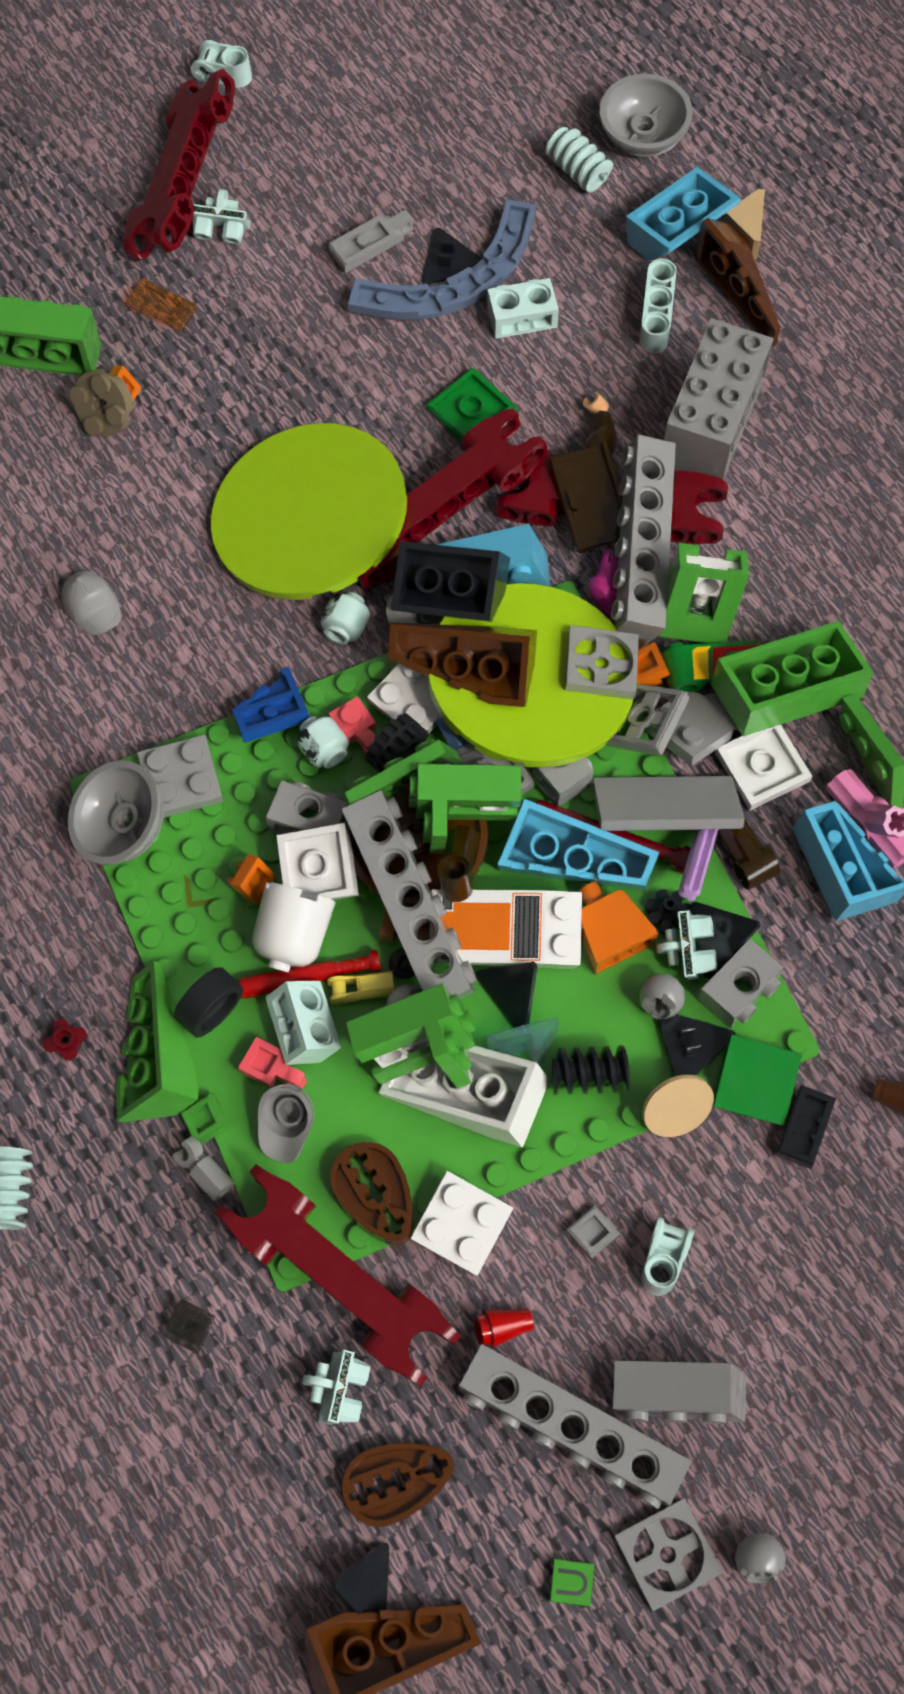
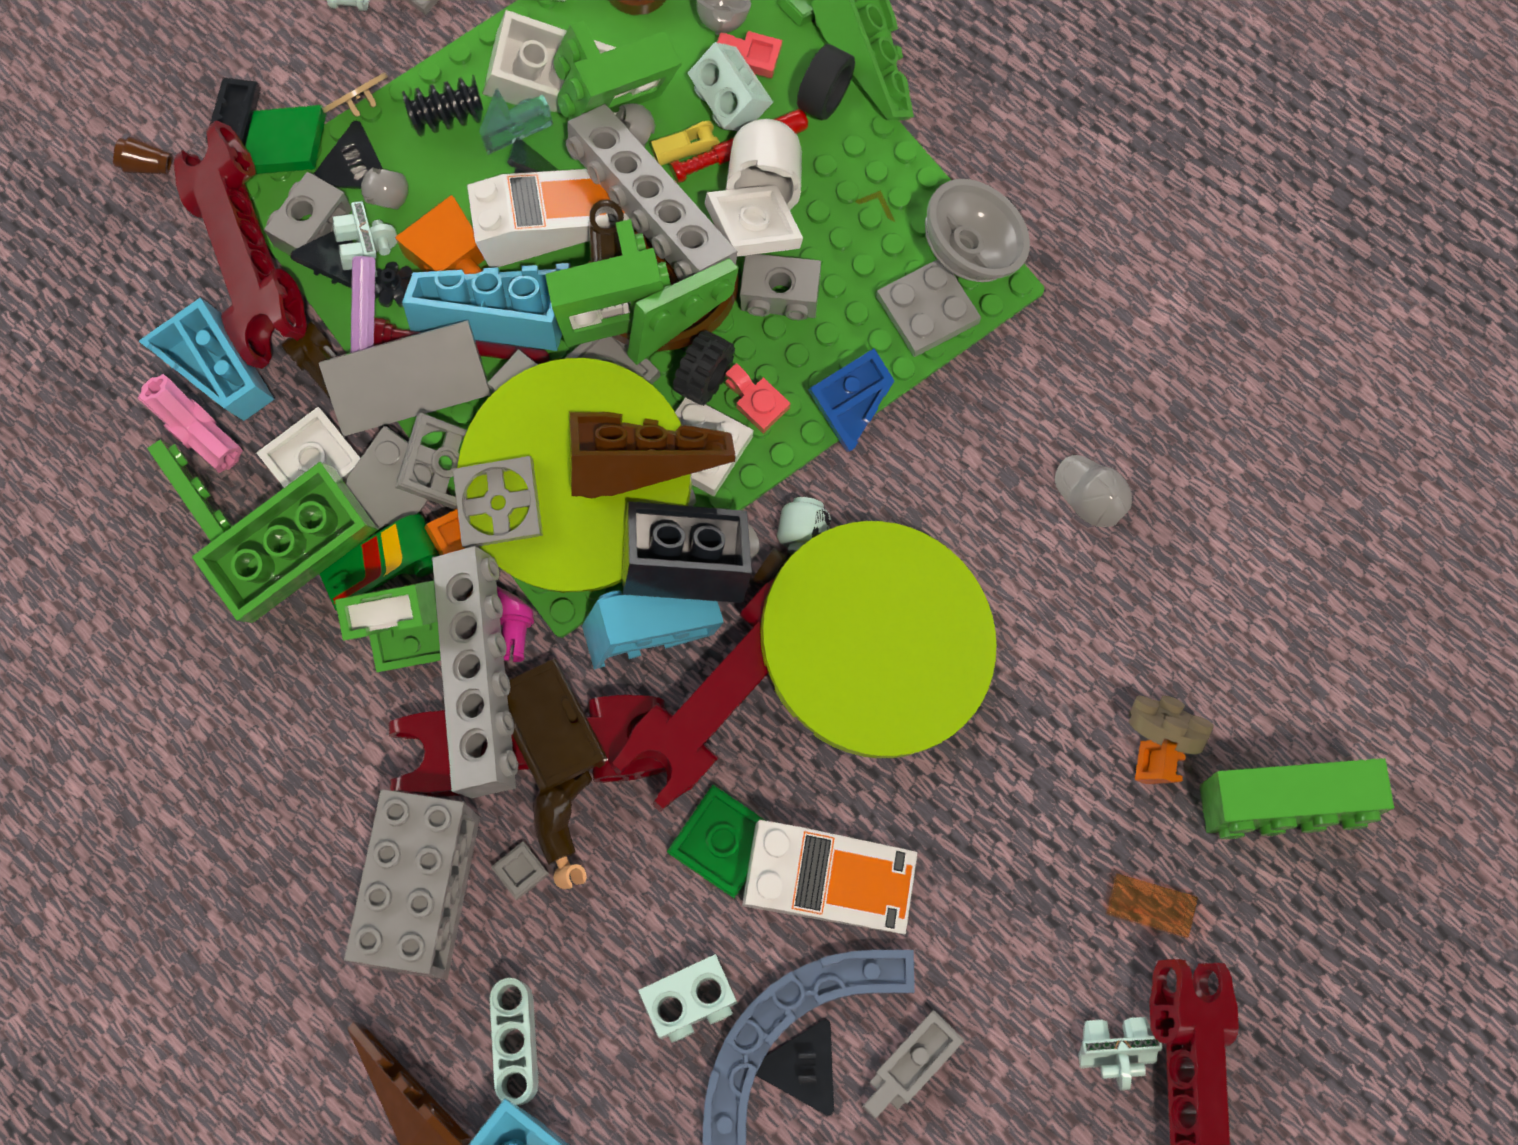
camera: 170 degrees right, 5 degrees up
(69, 1049) = (953, 51): dark red plate -> none
(251, 879) = (819, 212): orange tile -> none
(322, 742) = (787, 368): light aqua head -> none
(381, 590) = (769, 568): none -> dark brown tile
(401, 360) = (829, 877): none -> slope
(634, 419) = (520, 870): none -> light grey tile
(822, 1027) = (259, 293): none -> dark red piece

